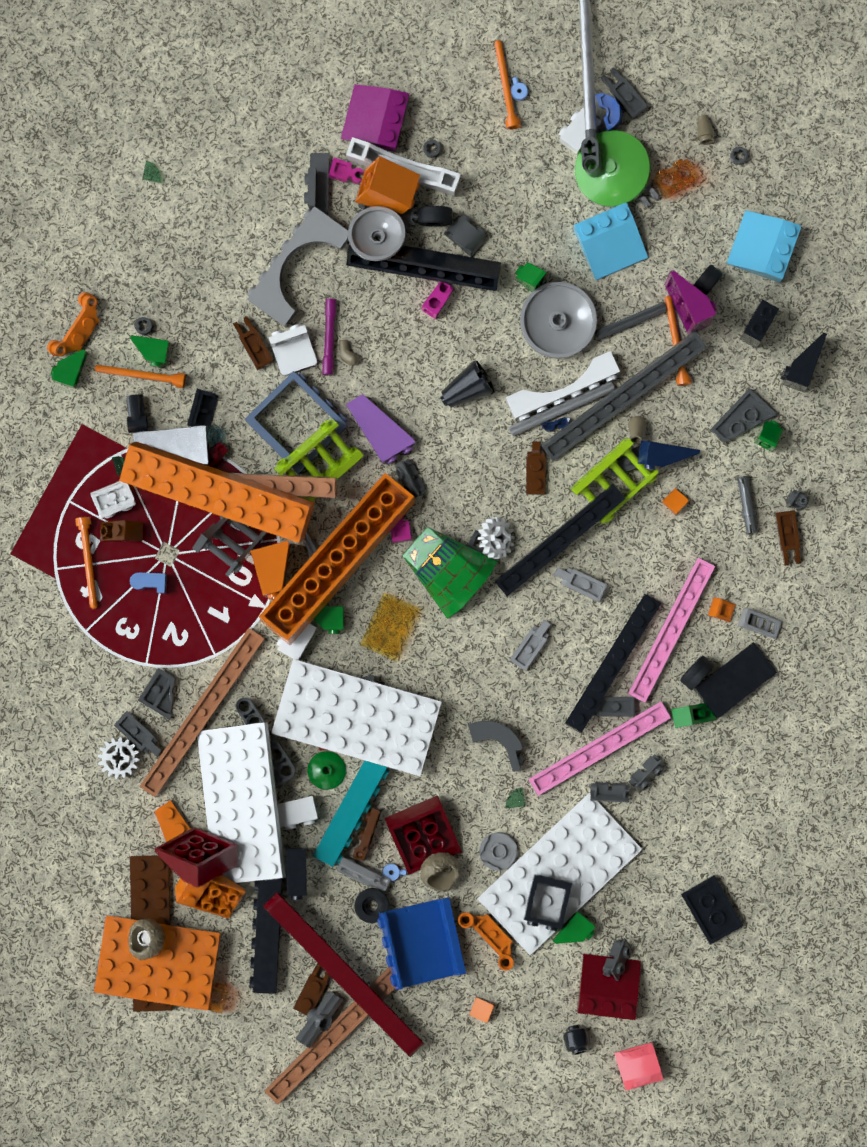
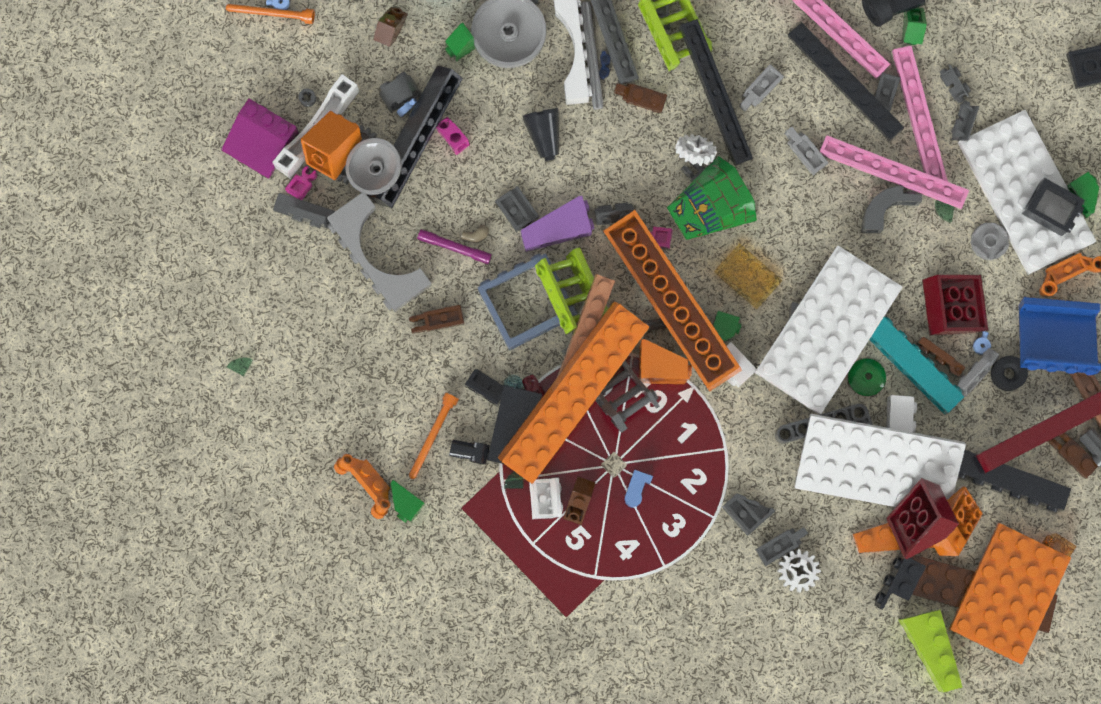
camera: 75 degrees left, 5 degrees down
(83, 525) = (562, 535): orange piece -> none
(90, 900) = (933, 647): none -> lime wedge
(137, 856) = (900, 581): none -> black bracket
(146, 939) = (989, 594): dark tan hair -> none
(149, 325) = (387, 413): dark grey bush -> none
(153, 350) = (412, 417): green slope -> none
(201, 712) = (778, 477): nougat plate -> none
(292, 349) = (456, 283): white bracket -> none
(296, 873) = (954, 428): black window -> none
(384, 384) = (516, 209): none -> dark grey plate
(435, 216) = (373, 111): black tyre -> none
(440, 871) = (996, 297): dark tan hair -> none
(450, 246) = (406, 107): none -> light blue piece
(527, 204) = (390, 26): none -> reddish brown slope
(535, 736) = (894, 172): none -> bright pink plate

